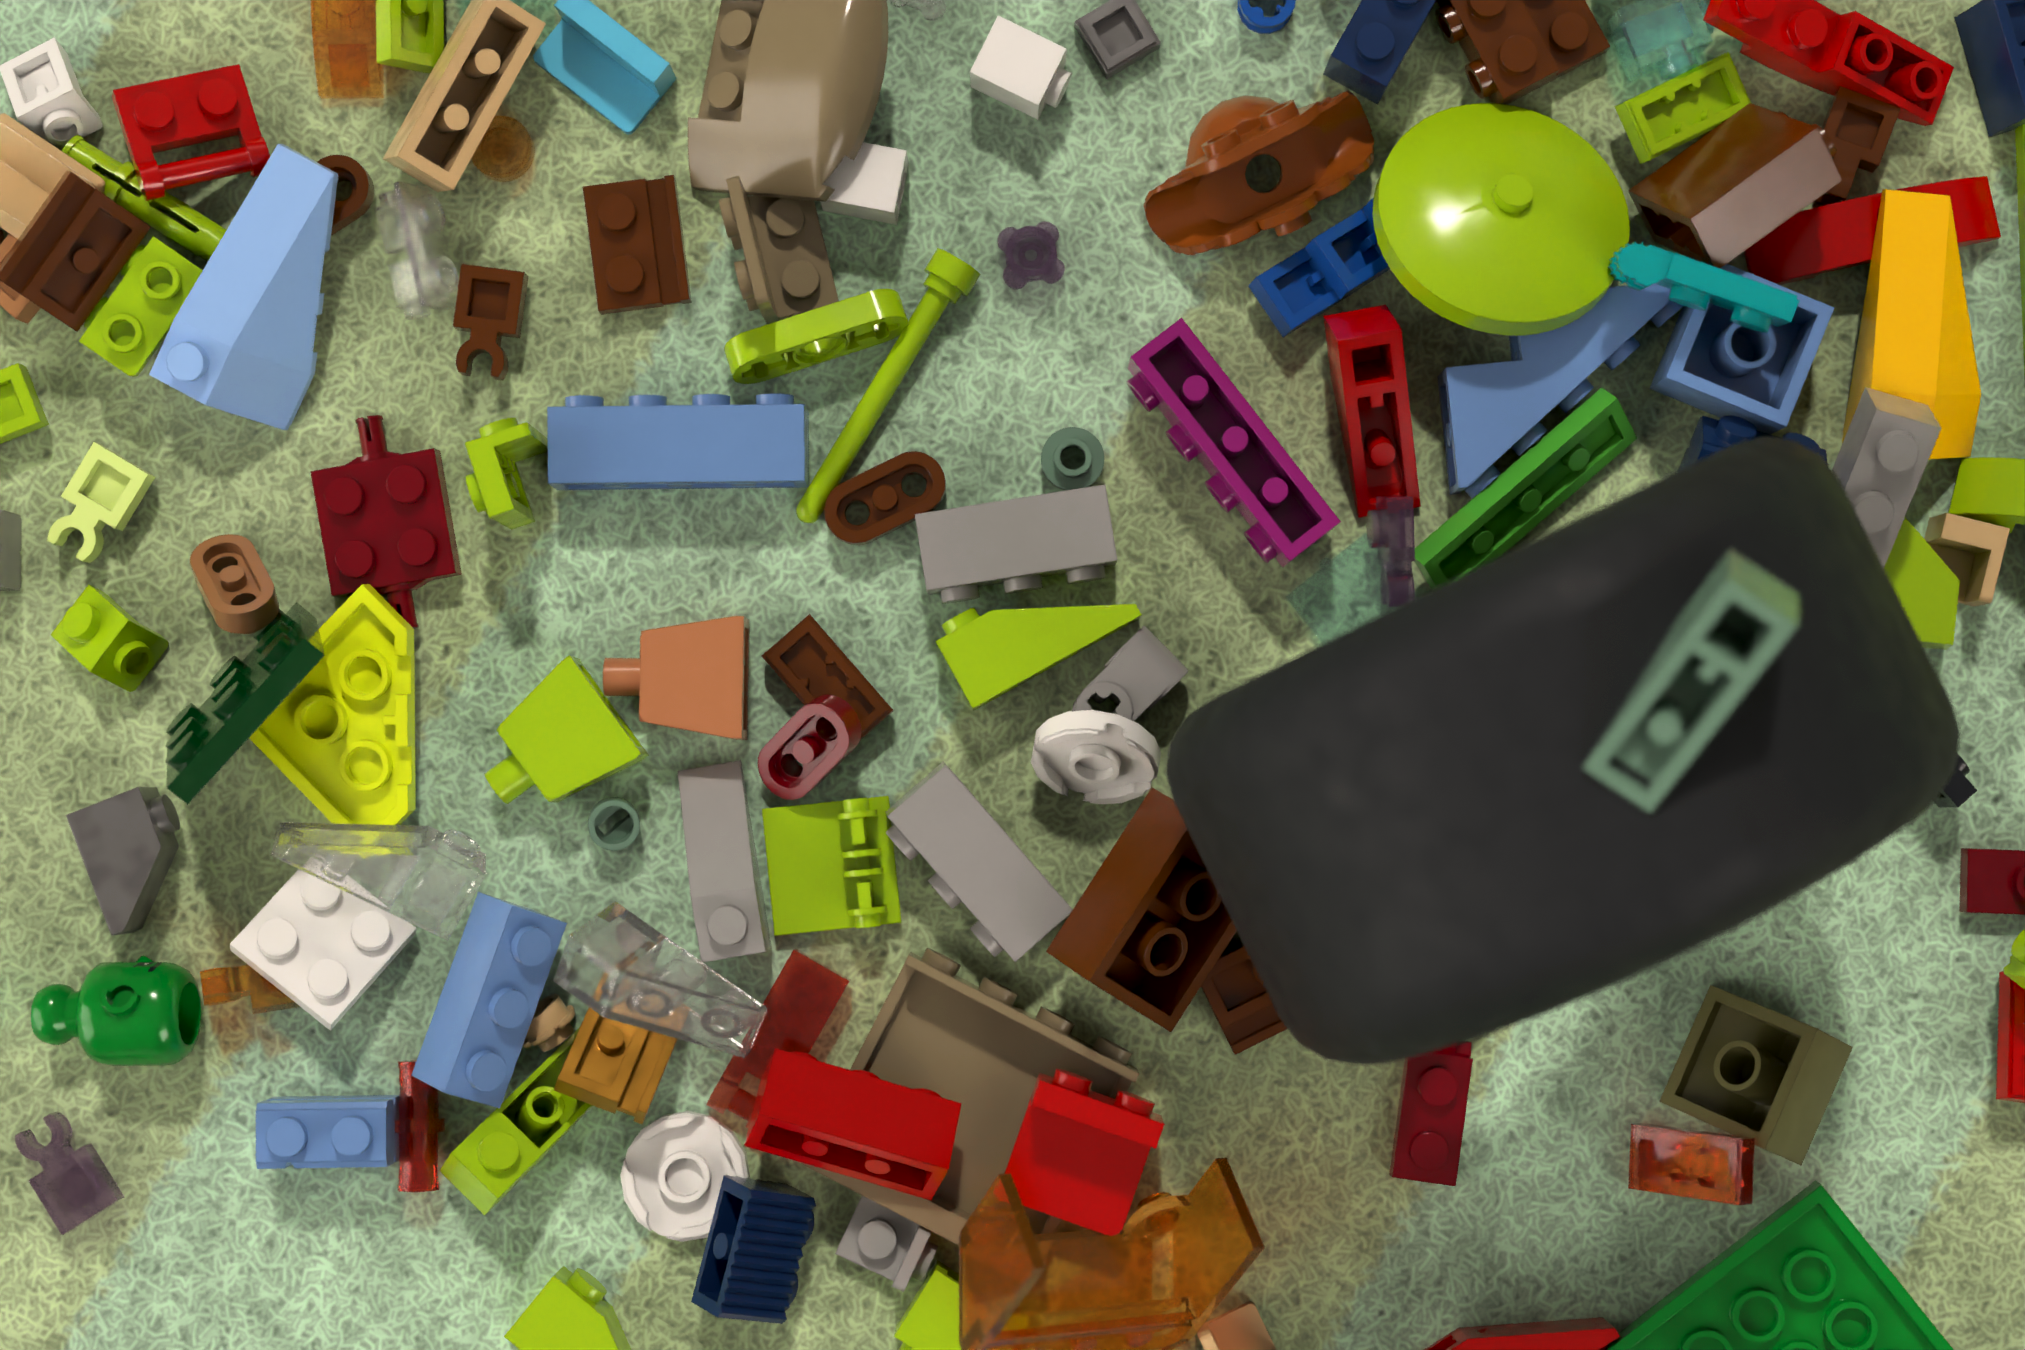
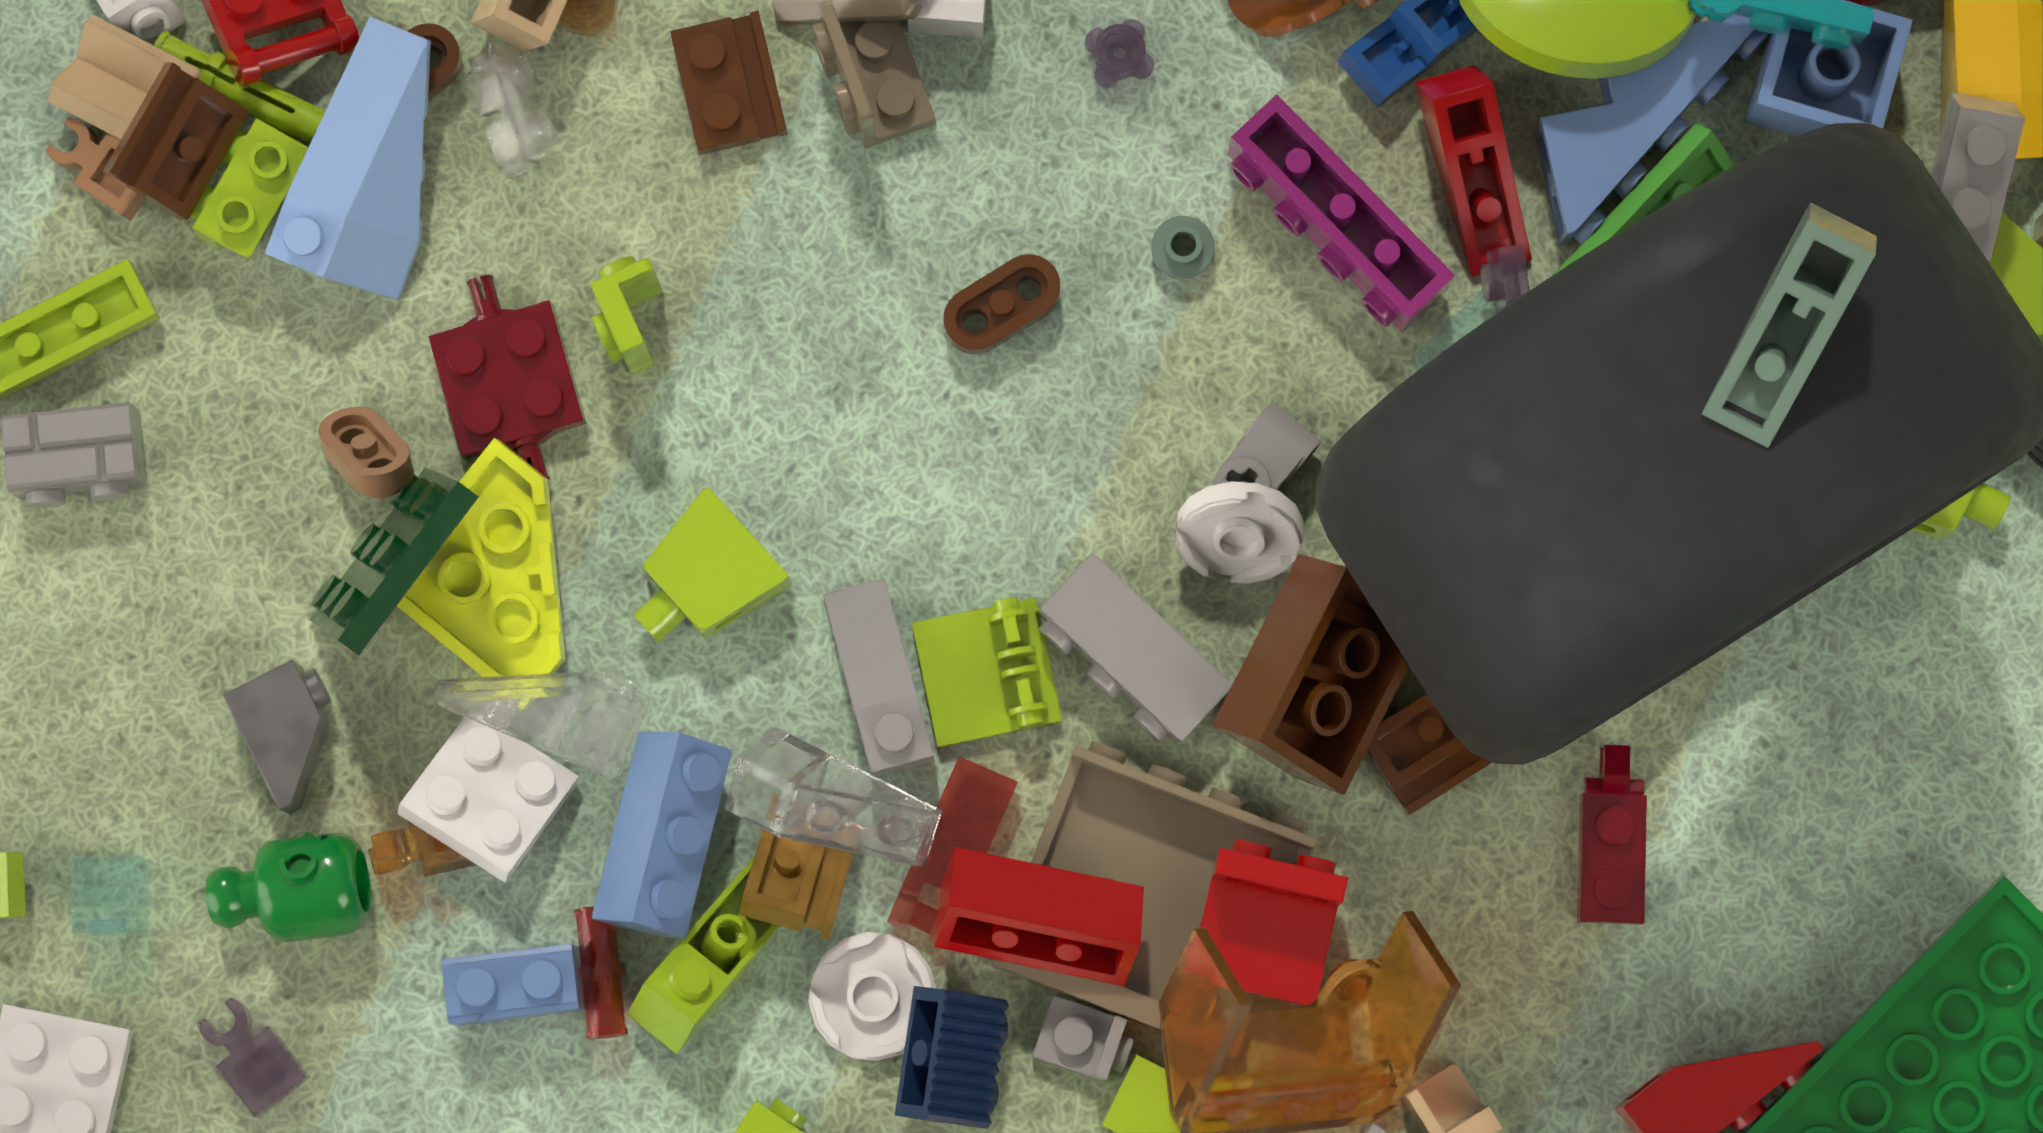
camera: 10 degrees left, 5 degrees down
(104, 492) = (224, 378): yellowish green plate -> none
(109, 640) = (243, 522): lime bracket -> none
(489, 307) = (589, 159): reddish brown plate -> none
(550, 1024) = (723, 857): tan plate -> none
(622, 833) = (775, 660): sand green hinge -> none
(678, 444) = (792, 272): medium blue brick -> none
(689, 677) = (826, 499): nougat torso -> none
(812, 743) = (957, 550): dark red plate -> none
(816, 336) = (916, 152): lime beam -> none
(816, 666) = (964, 491): reddish brown plate -> none
(946, 282) = (1039, 86): lime piece -> none
(1014, 645) = (1150, 432): lime slope -> none
(1016, 543) = (1137, 333): light grey brick -> none
(1691, 1163) = (1874, 871): clear red plate -> none
(1756, 1074) = (1930, 780): olive slope -> none

